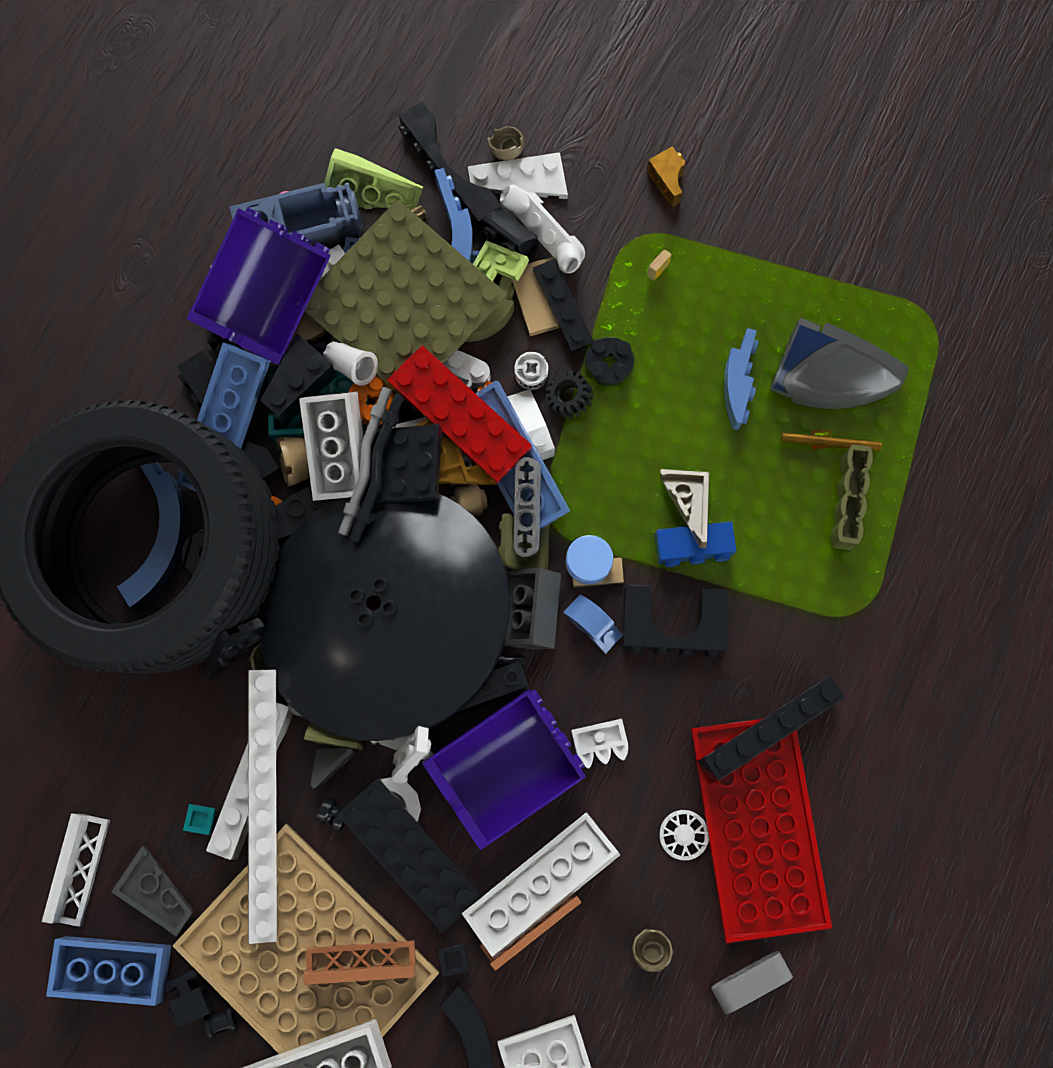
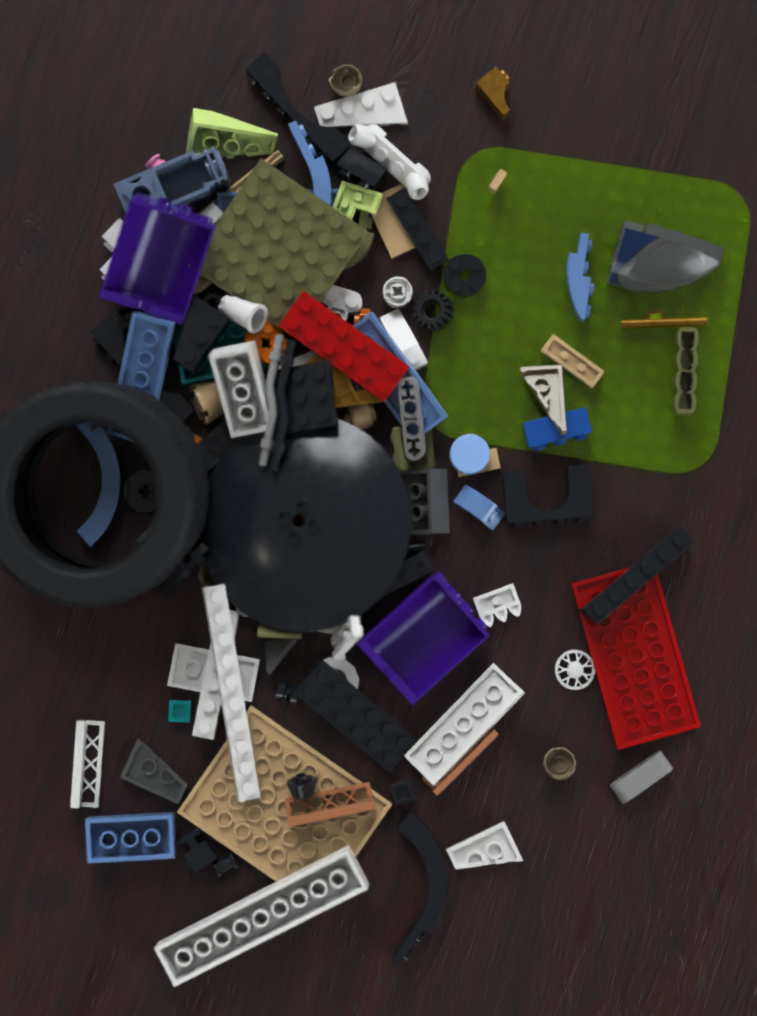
camera: 10 degrees left, 10 degrees up
(219, 767) = (189, 668): none -> white plate
(329, 934) = (302, 786): none -> black piece
(721, 471) = (572, 361): none -> tan tile

